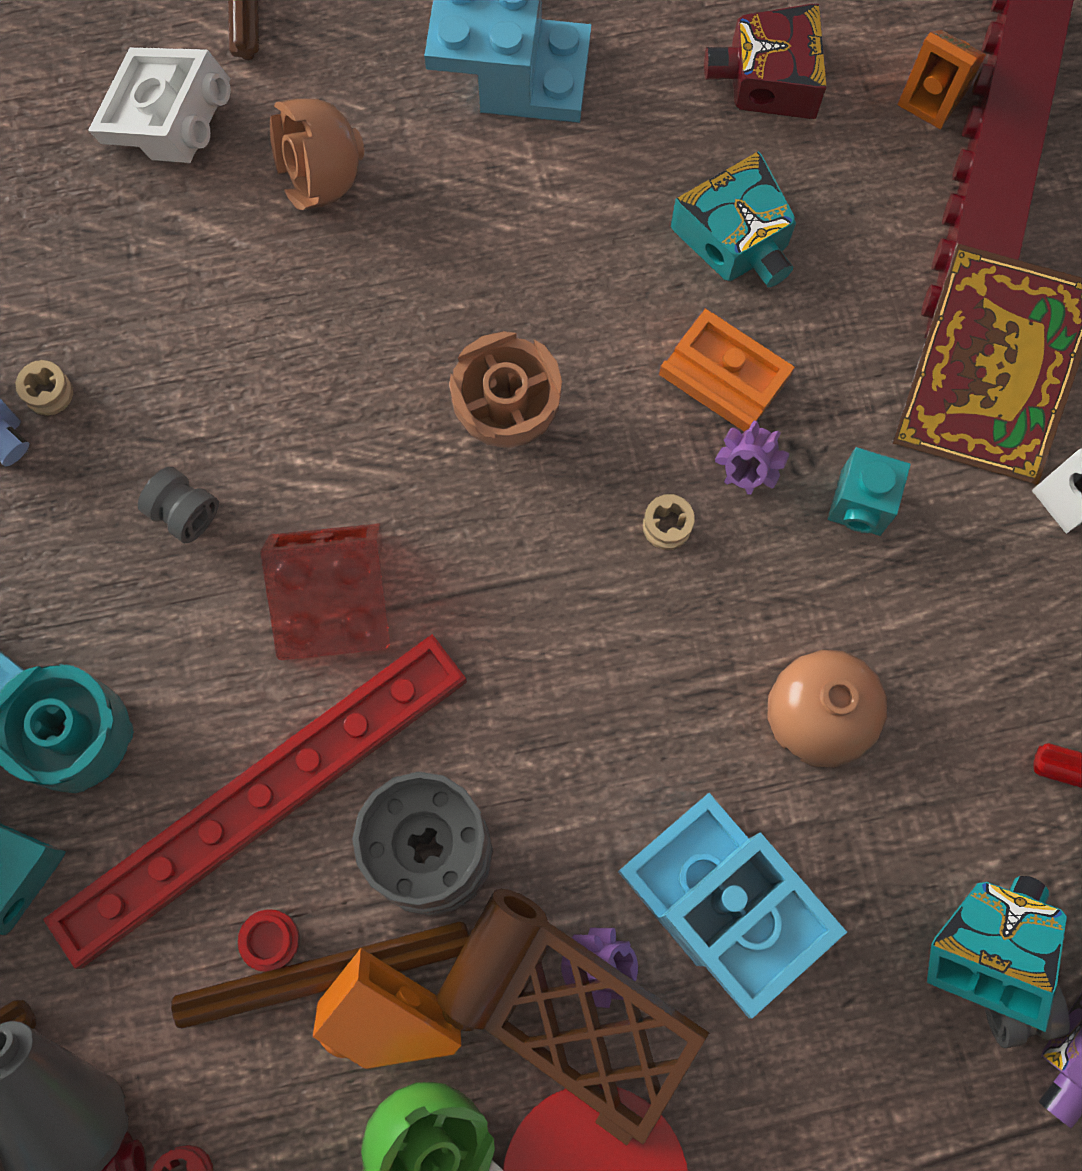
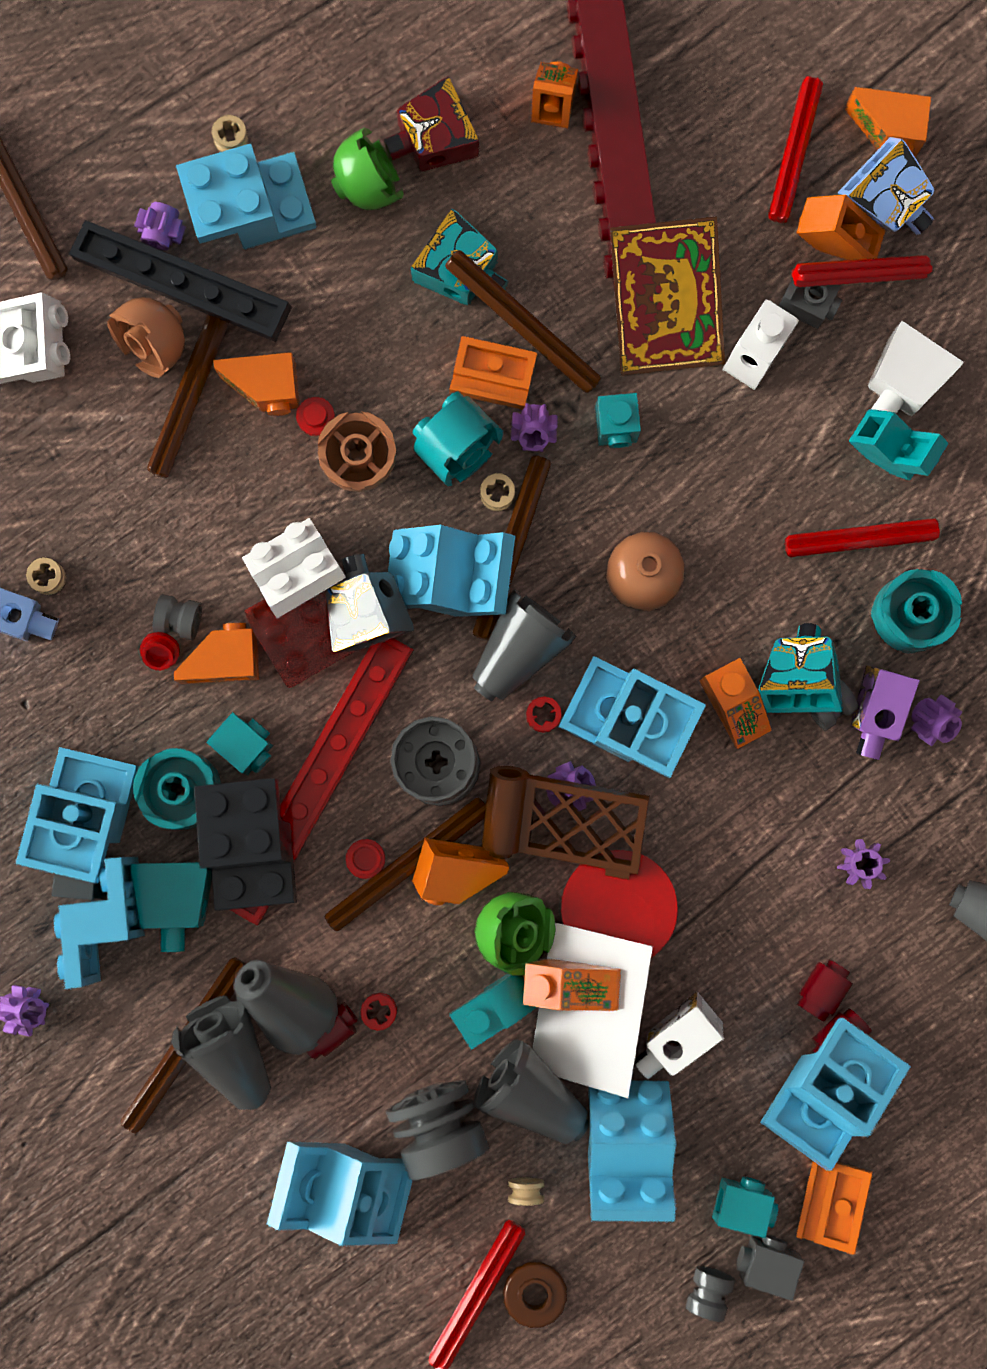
camera: 25 degrees left, 10 degrees up
(107, 844) = (245, 844): none -> black bracket
(134, 538) = (159, 651): none -> red plate
(177, 705) = (242, 744): none -> teal brick
(208, 580) = (222, 657): none -> orange slope
(335, 239) = (187, 397): none -> reddish brown axle
(354, 501) = (293, 567): none -> white plate
(387, 110) = (180, 280): none -> black plate
(390, 41) = (160, 226): none -> medium lavender gear
(424, 593) = (365, 608): none -> dark grey torso
(430, 262) = (263, 380): none -> orange slope
(471, 325) = (314, 415): none -> red plate
(560, 593) = (452, 570): none -> medium azure bracket
(605, 826) = (539, 703): none -> red bush
(609, 736) = (519, 647): none -> dark grey cone
(643, 427) = (456, 438): none -> teal brick
(655, 603) = (519, 526): none -> reddish brown axle
(666, 74) = (365, 173): none -> bright green cylinder
(793, 320) = (522, 321): none -> reddish brown axle
(888, 948) = (737, 703): none -> orange slope

